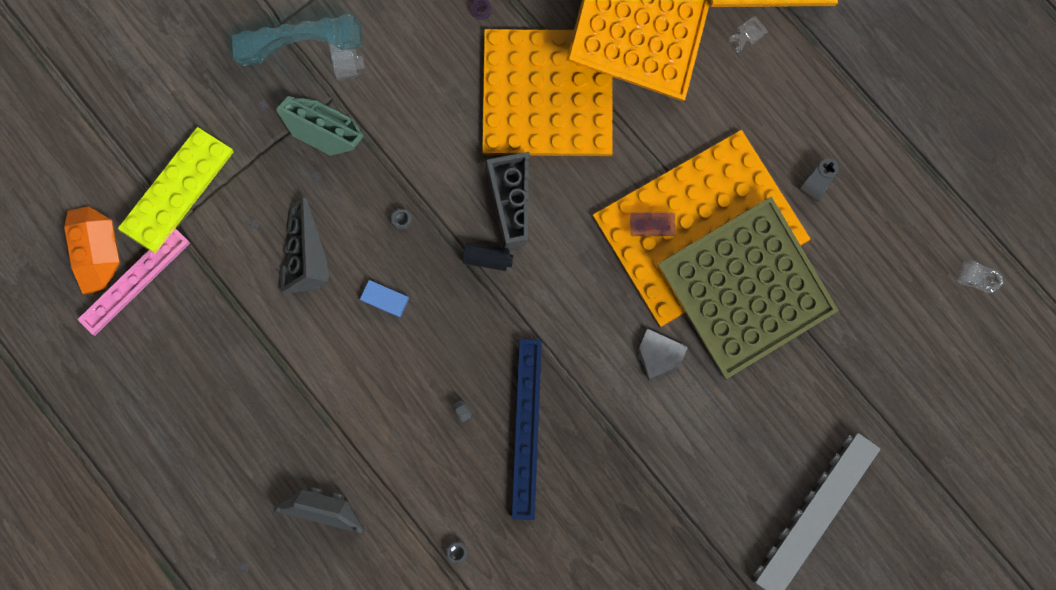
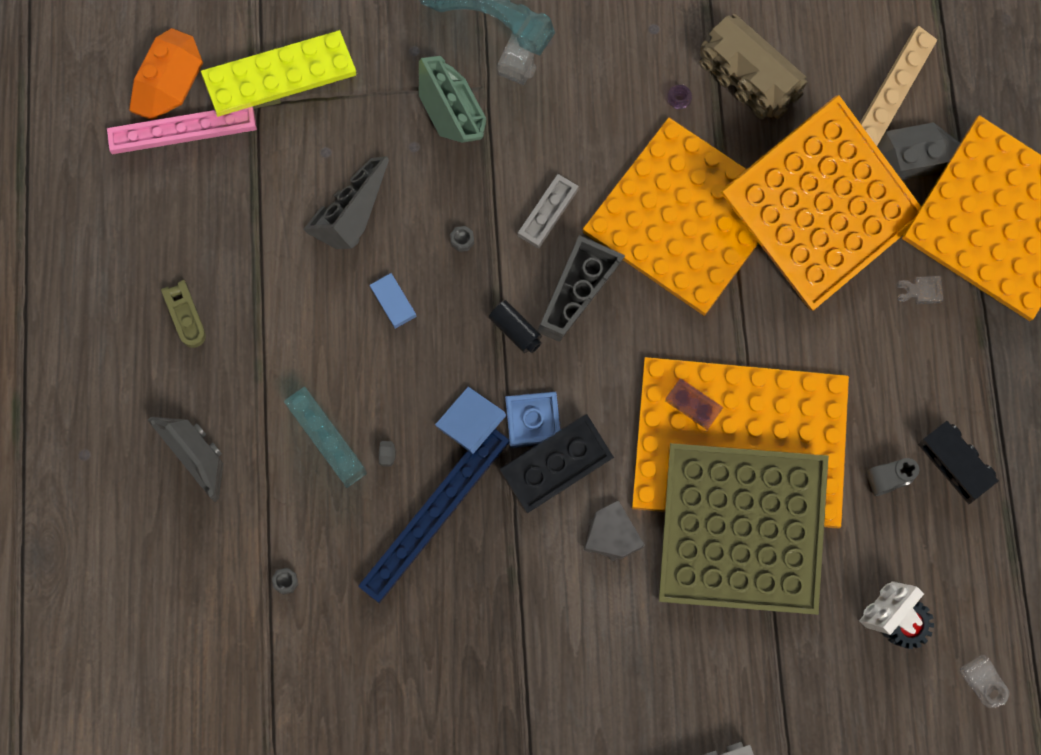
camera: 35 degrees right, 5 degrees down
(240, 415) = (184, 315): none -> olive plate
(410, 430) = (325, 437): none -> clear light blue brick
(448, 156) = (548, 211): none -> light grey plate
(504, 345) = (470, 420): none -> medium blue tile
(546, 313) = (532, 418): none -> medium blue tile
(586, 333) = (556, 463): none -> black plate
(857, 138) = (958, 462): none -> black brick
(892, 272) = (899, 615): none -> white plate

